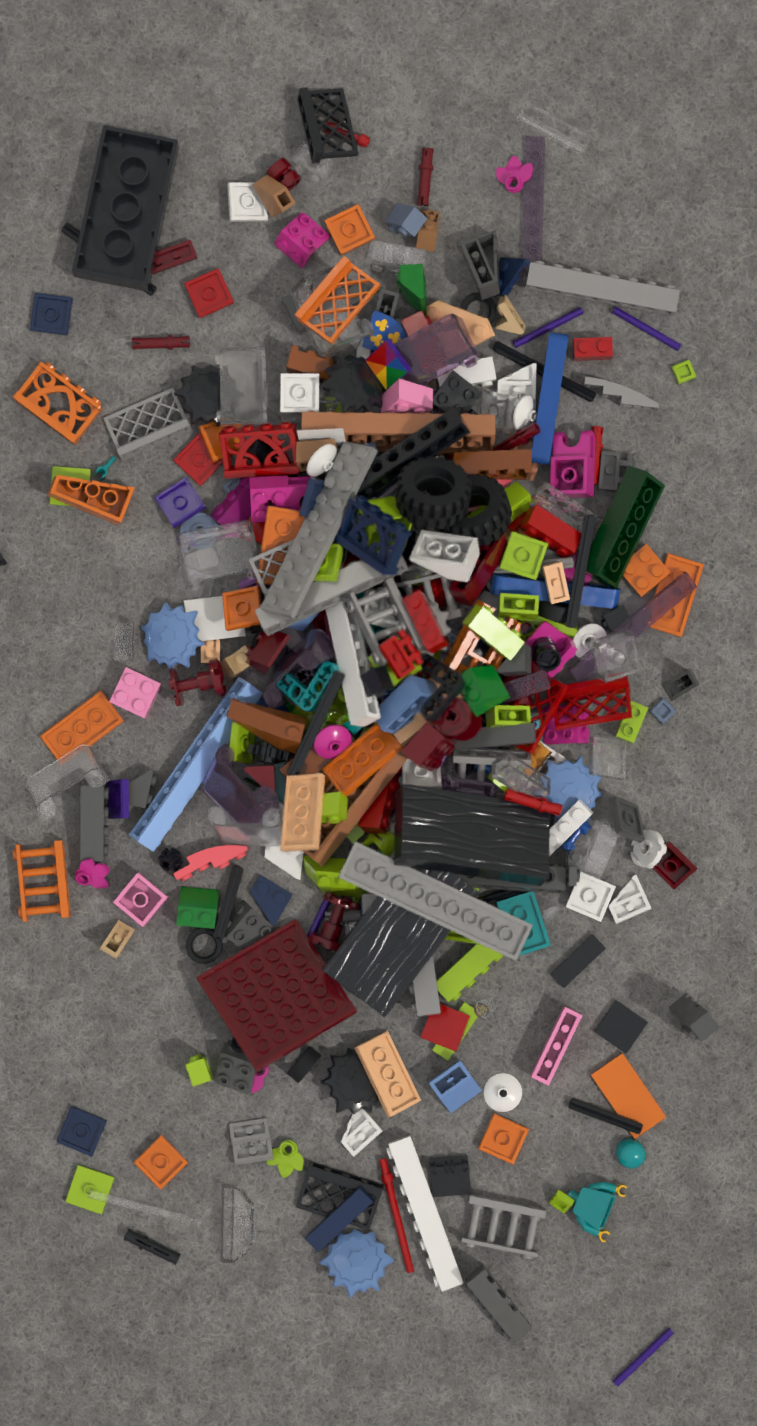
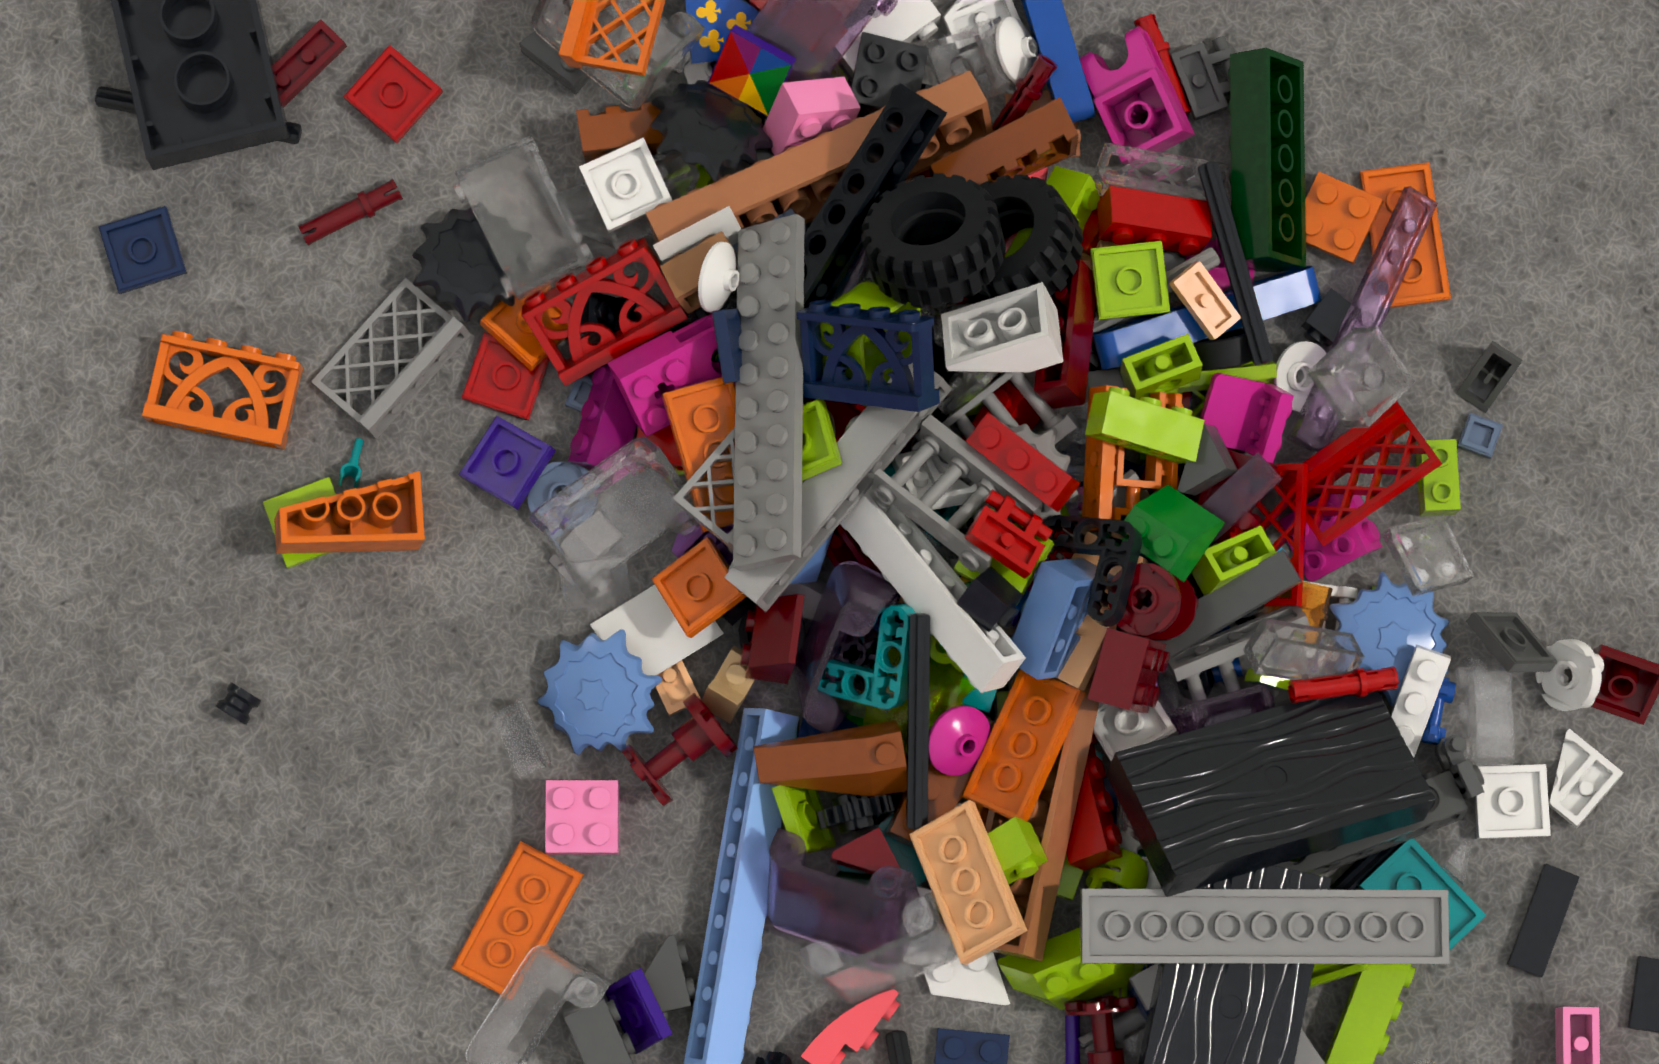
camera: 25 degrees left, 5 degrees down
(546, 653) = (1245, 427): black wheel -> none

